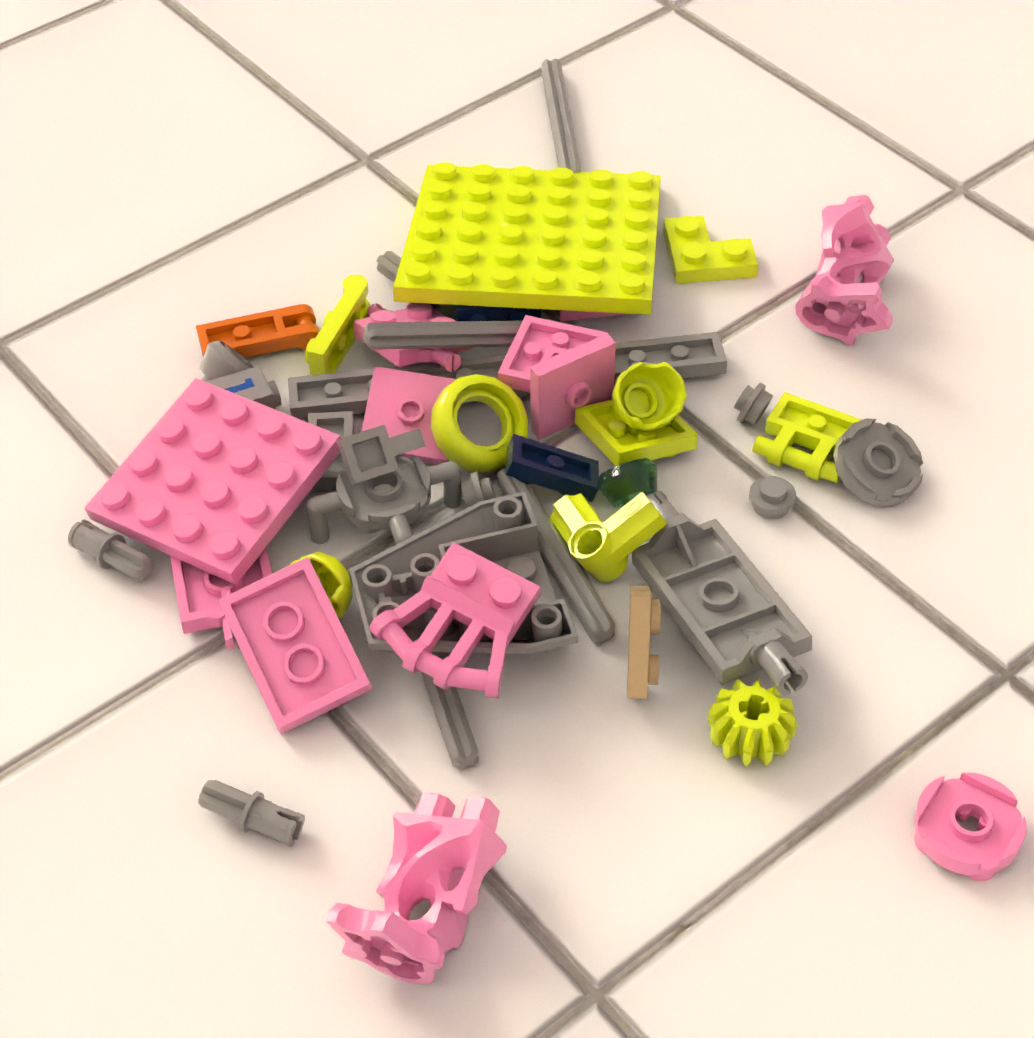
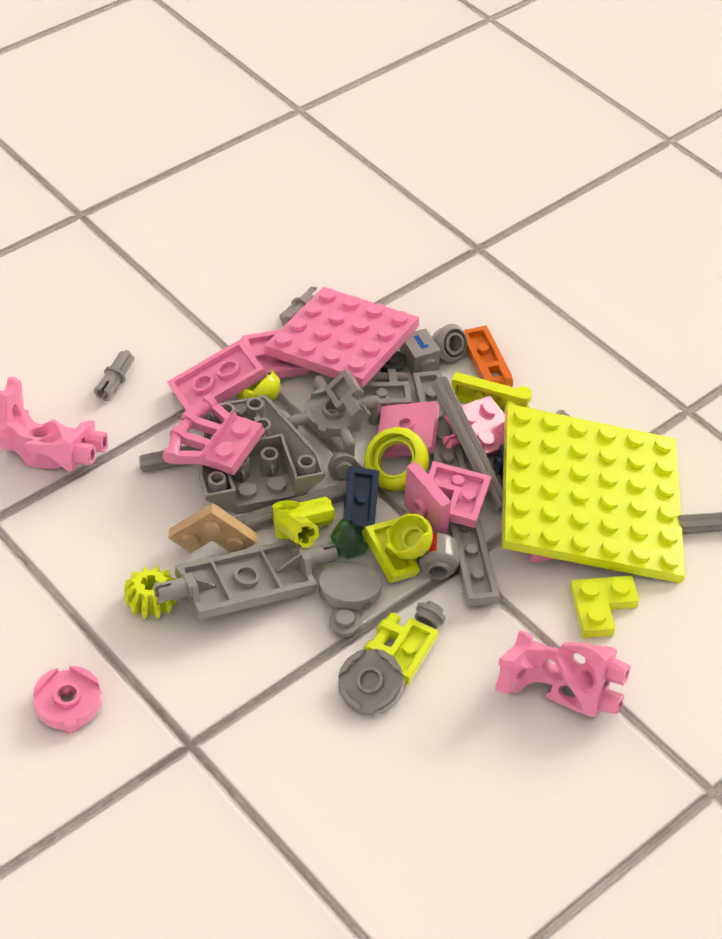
camera: 85 degrees right, 0 degrees up
(711, 484) = (350, 585): none -> light grey tile

